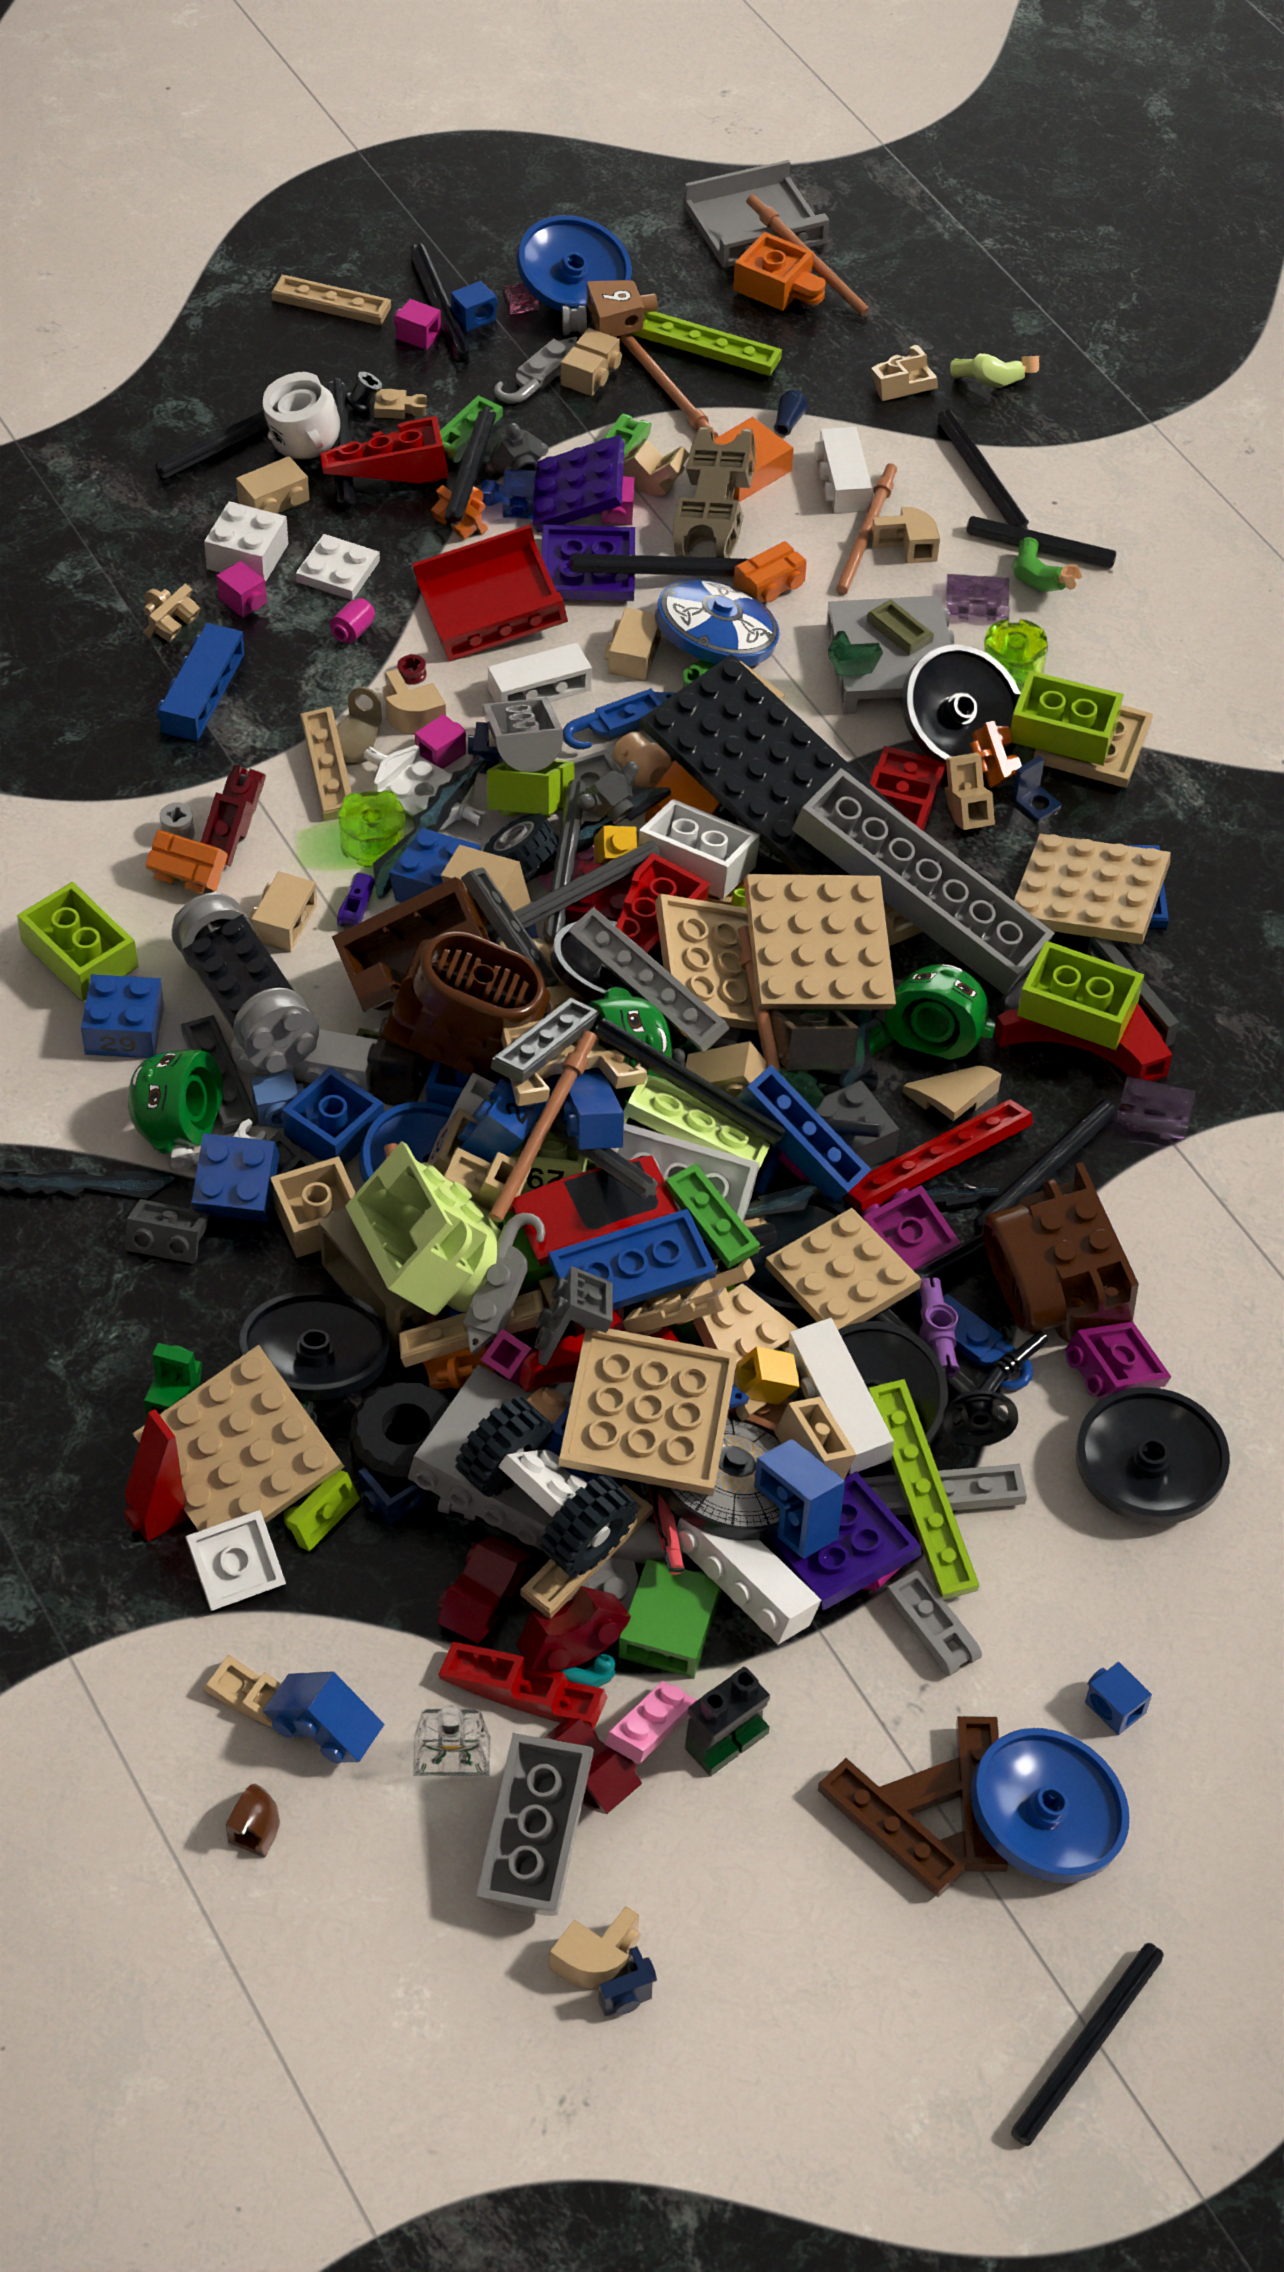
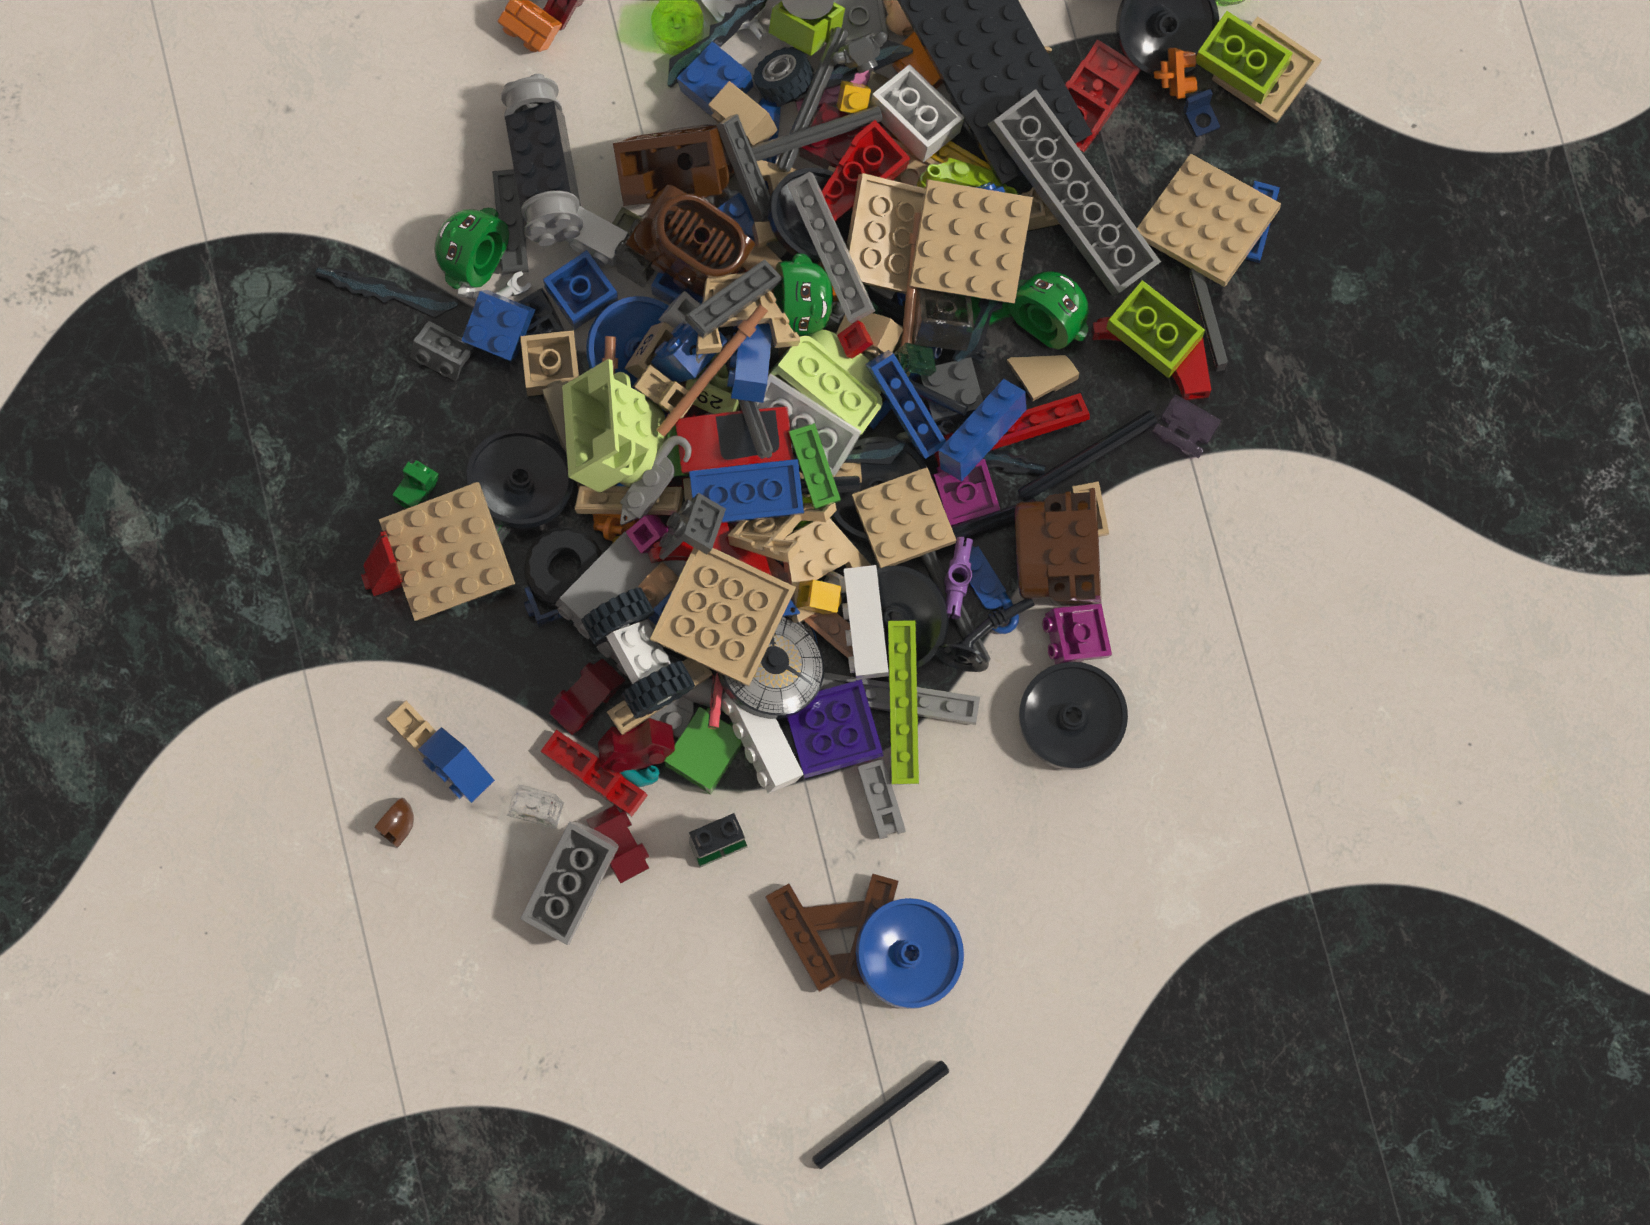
camera: 15 degrees right, 25 degrees up
(76, 939) = (432, 80): lime brick -> none
(122, 1016) = (450, 156): blue brick -> none
(235, 1560) = (426, 633): white plate -> none
(272, 1094) = (545, 259): medium blue brick -> none
(284, 910) = (591, 87): tan brick -> none
(321, 1510) = (498, 604): lime tile -> none
(356, 900) = (649, 86): dark purple bar -> none
(591, 1960) = (585, 979): tan brick -> none
(628, 1991) = (598, 1005): dark blue bracket -> none
(650, 1722) = (667, 826): bright pink plate -> none
(689, 1082) = (831, 351): black axle -> none
(715, 1067) = (855, 339): none -> red tile
(805, 1493) = (811, 700): blue brick -> none
(817, 1431) = (835, 657): tan brick -> none
(907, 1151) = (982, 430): none -> blue brick
(966, 795) = (1146, 105): tan brick -> none
(1117, 1697) = (984, 886): blue brick -> none

